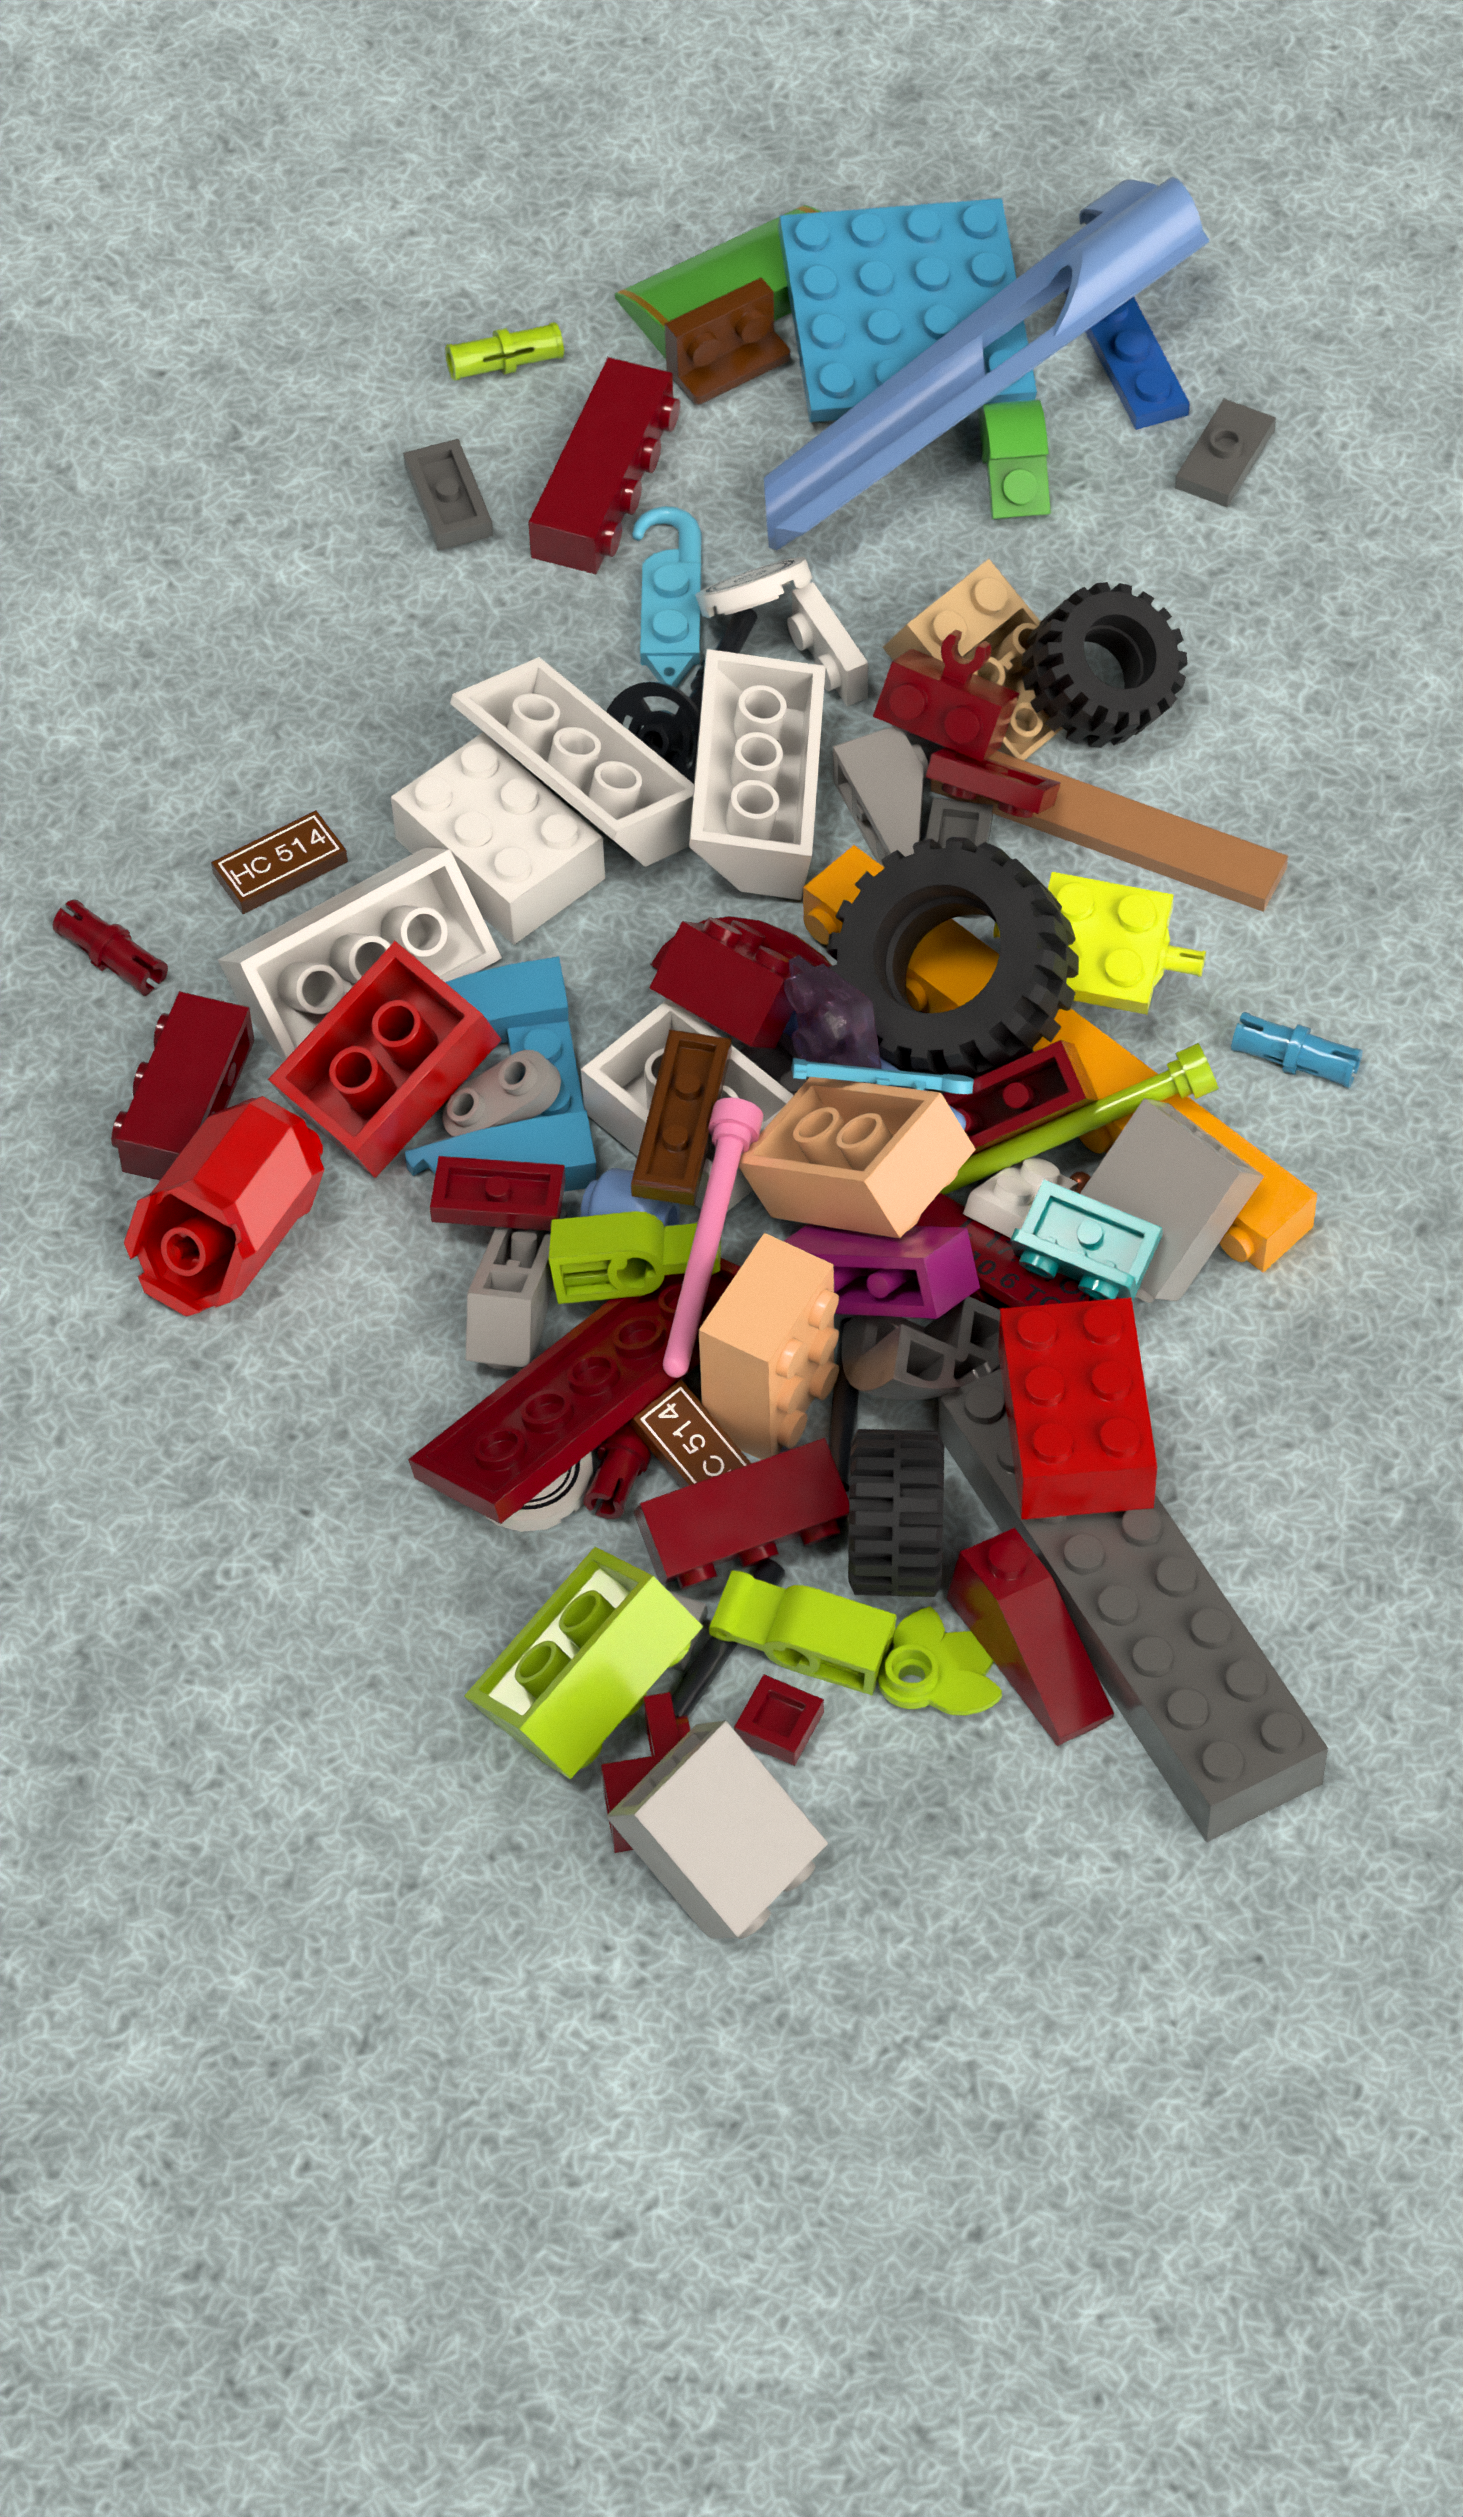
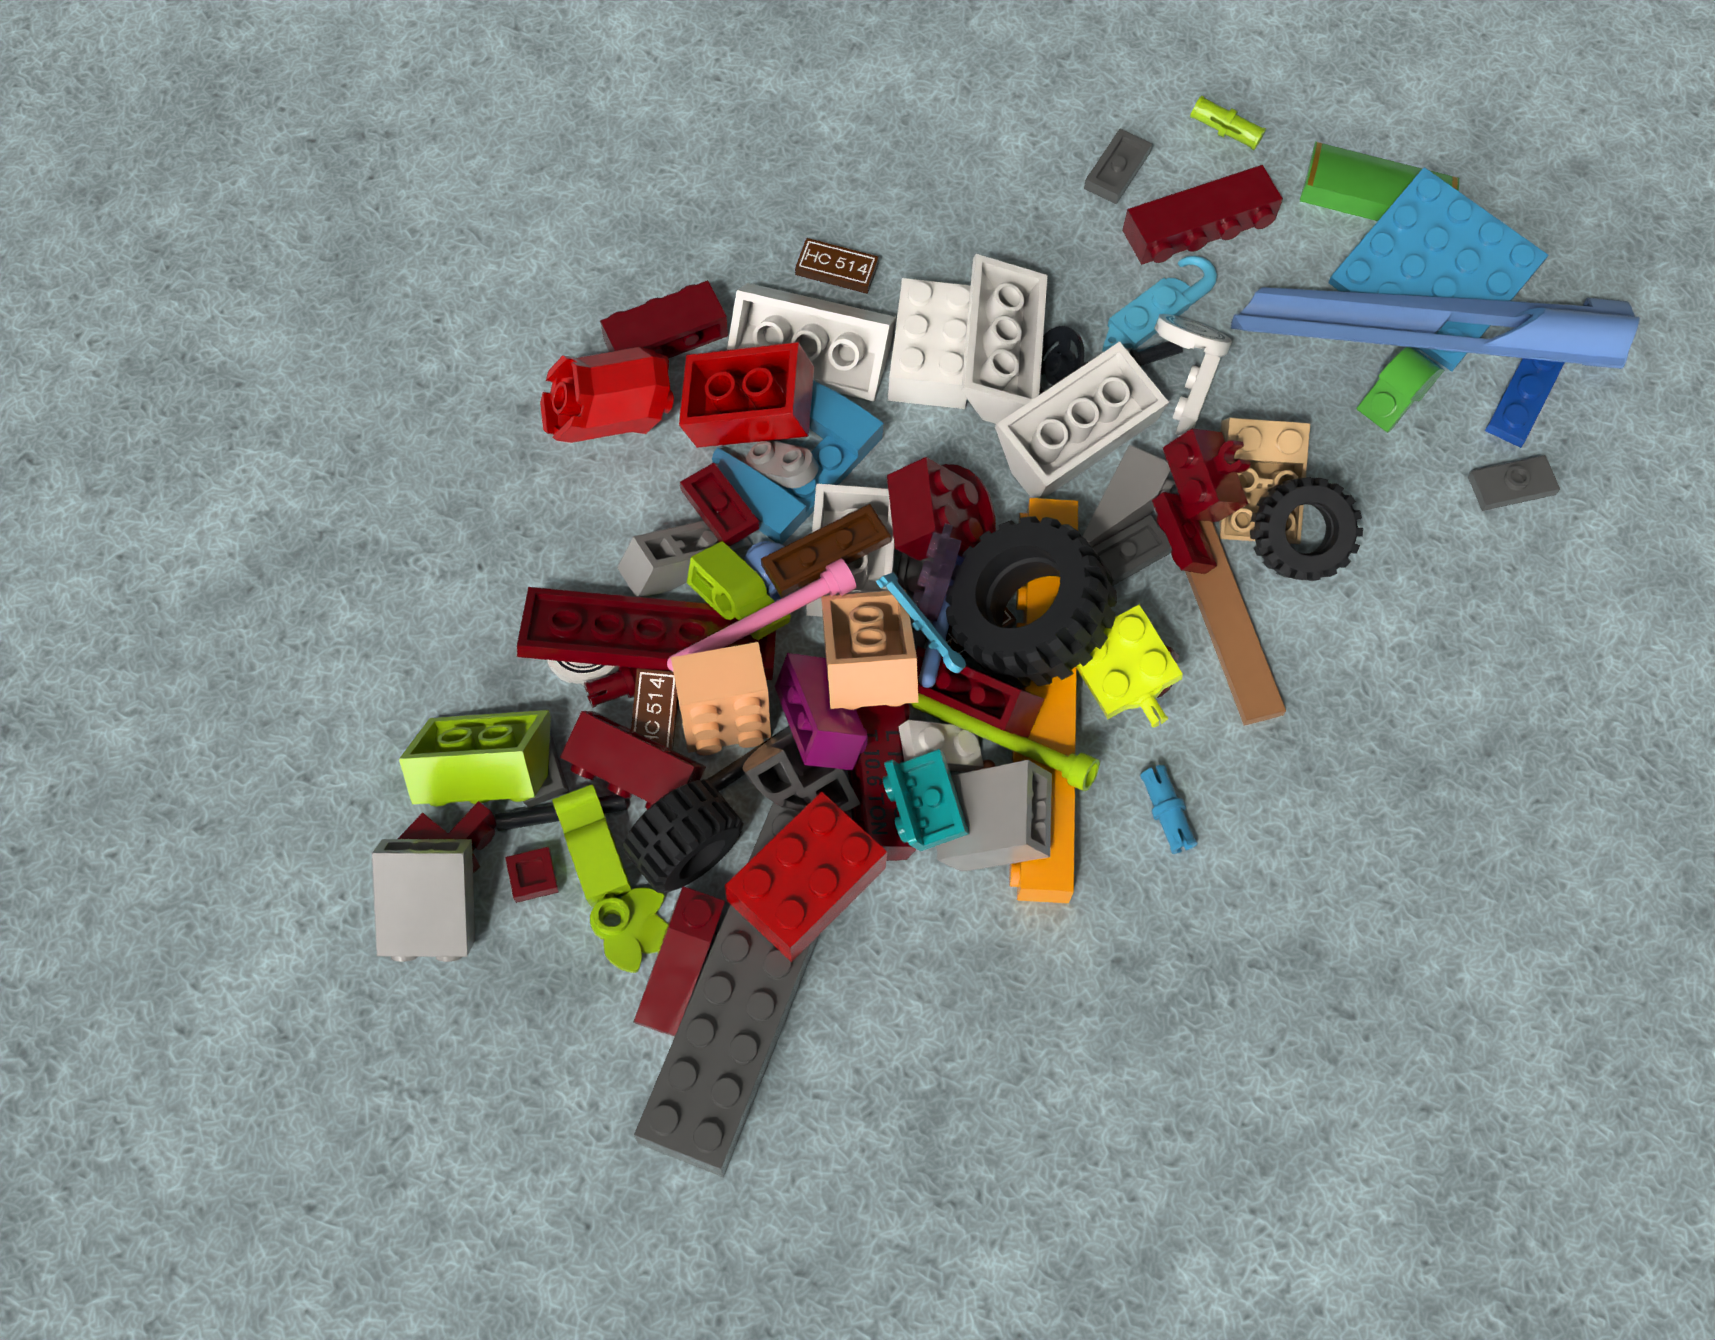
camera: 45 degrees right, 10 degrees up
(109, 947) = (720, 235): dark red pin -> none
(725, 342) = (1331, 208): reddish brown bracket -> none

